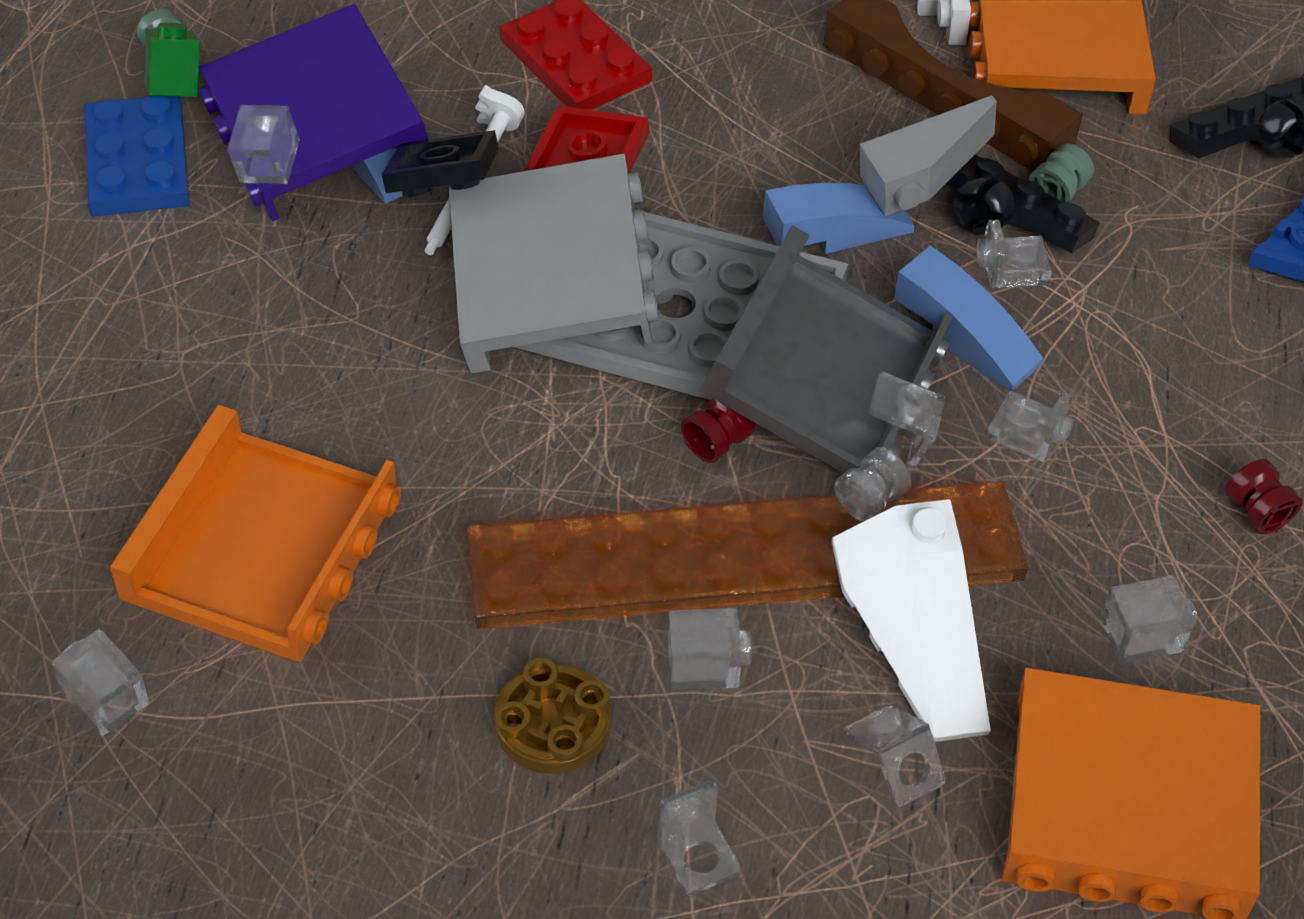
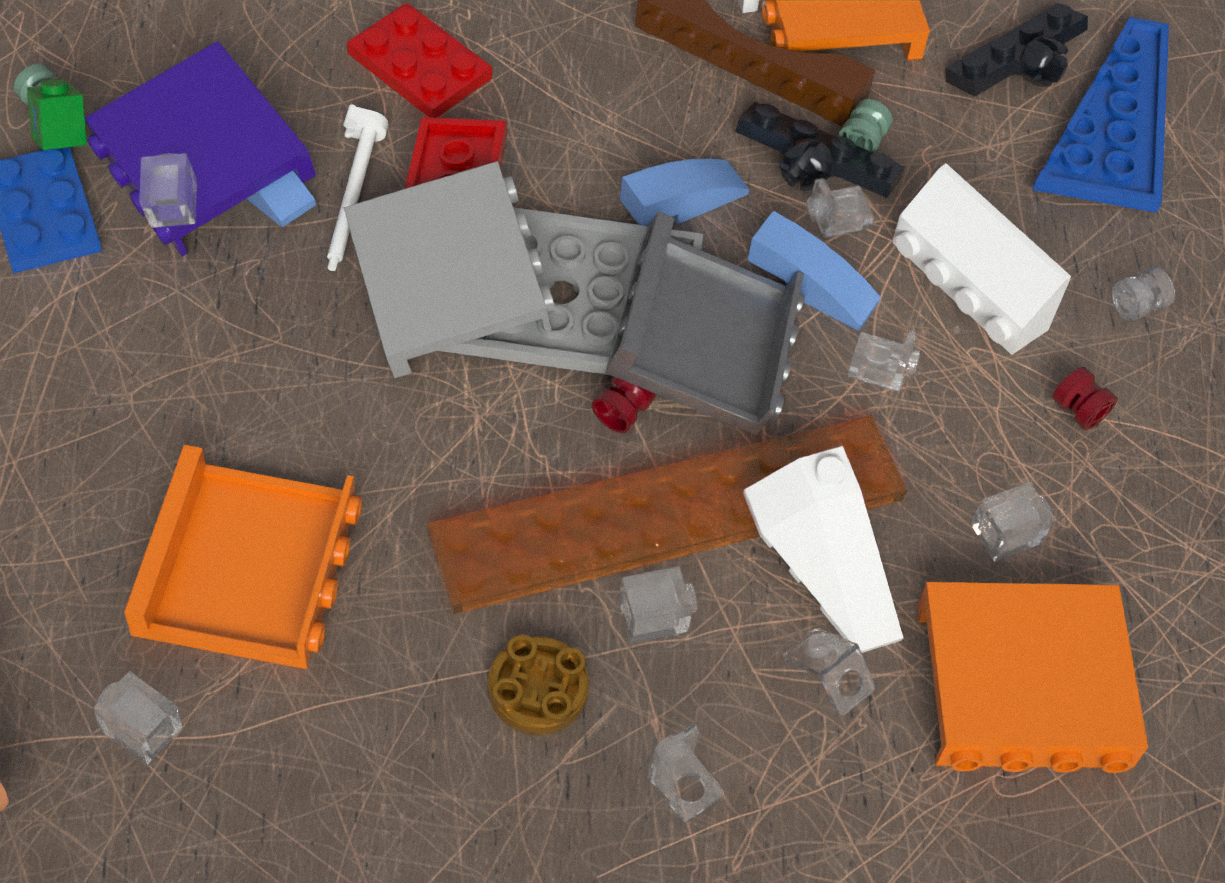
camera: 15 degrees left, 5 degrees up
(439, 162) = (333, 187): black plate -> none
(868, 488) = (772, 434): clear wheel -> none
(909, 409) = (785, 364): clear bracket -> none
(921, 158) = (745, 133): light grey slope -> none
(1166, 329) = (981, 260): none -> white slope

